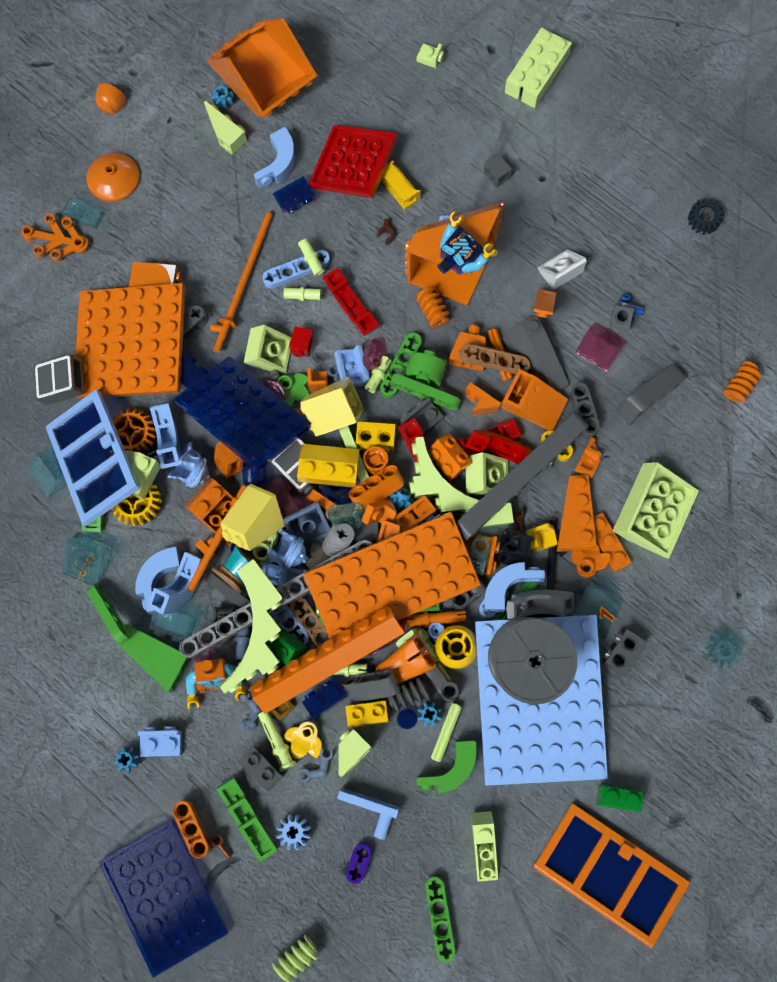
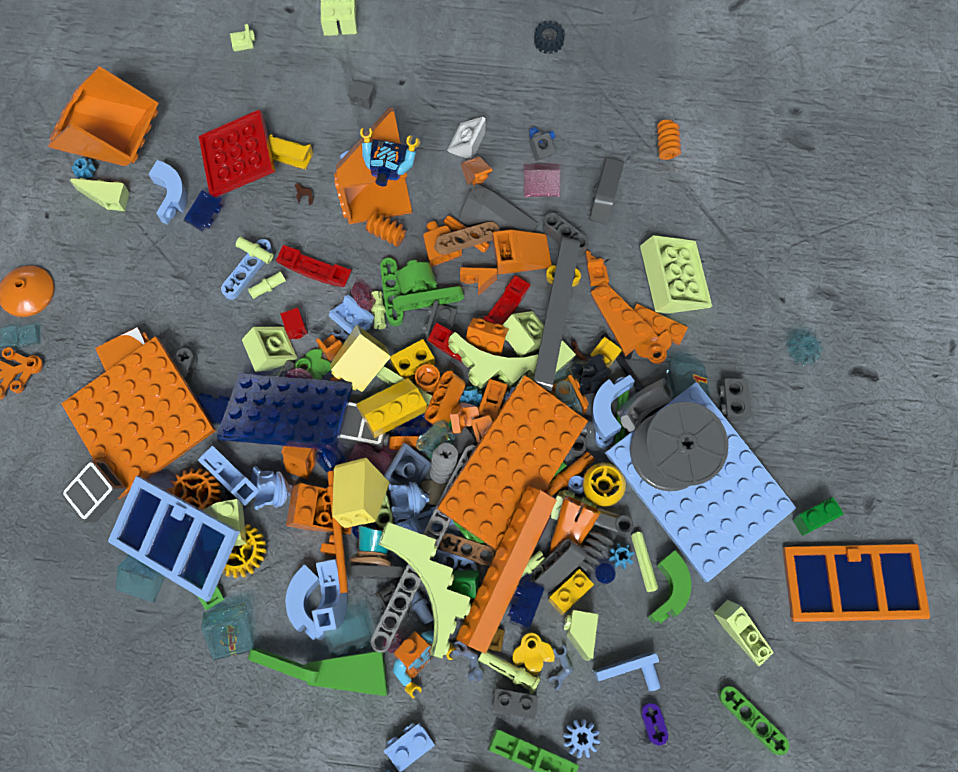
camera: 40 degrees left, 5 degrees down
(228, 320) = (216, 347): orange piece -> none
(498, 445) = (520, 302): red slope -> none

